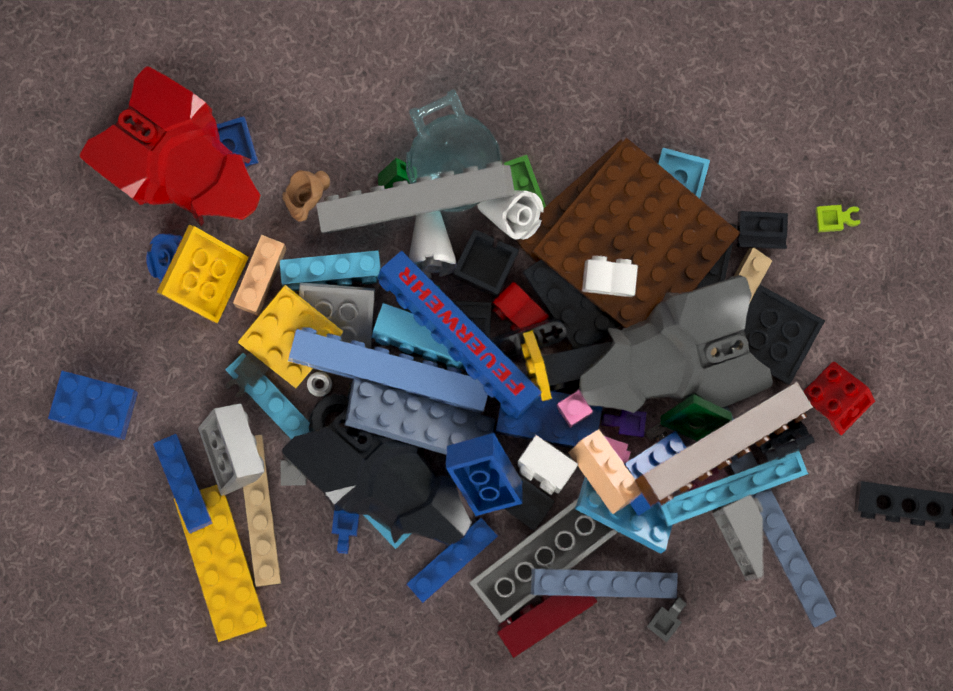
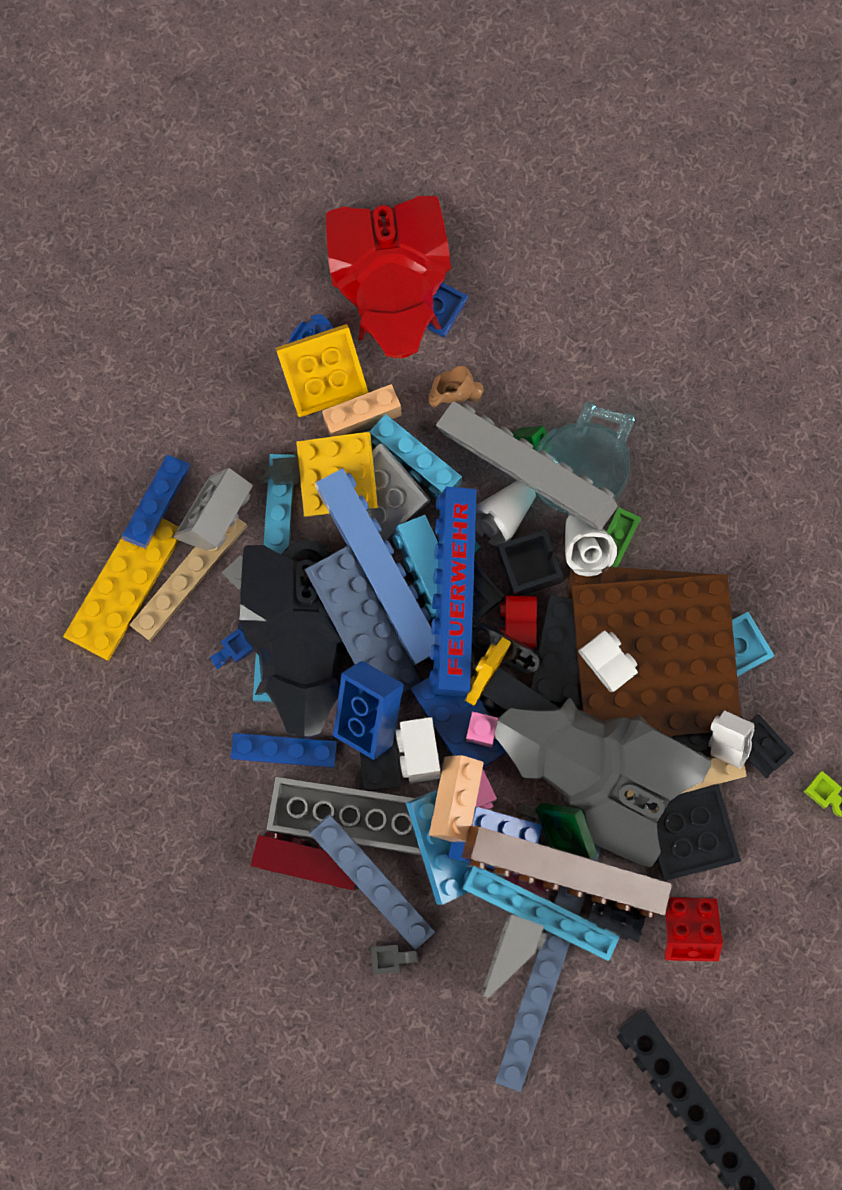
camera: 50 degrees right, 5 degrees down
(93, 405) = (154, 386): blue brick -> none
(319, 376) = (323, 522): white plate -> none
(629, 423) = (514, 785): dark purple plate -> none
(740, 247) = (731, 739): none -> white brick

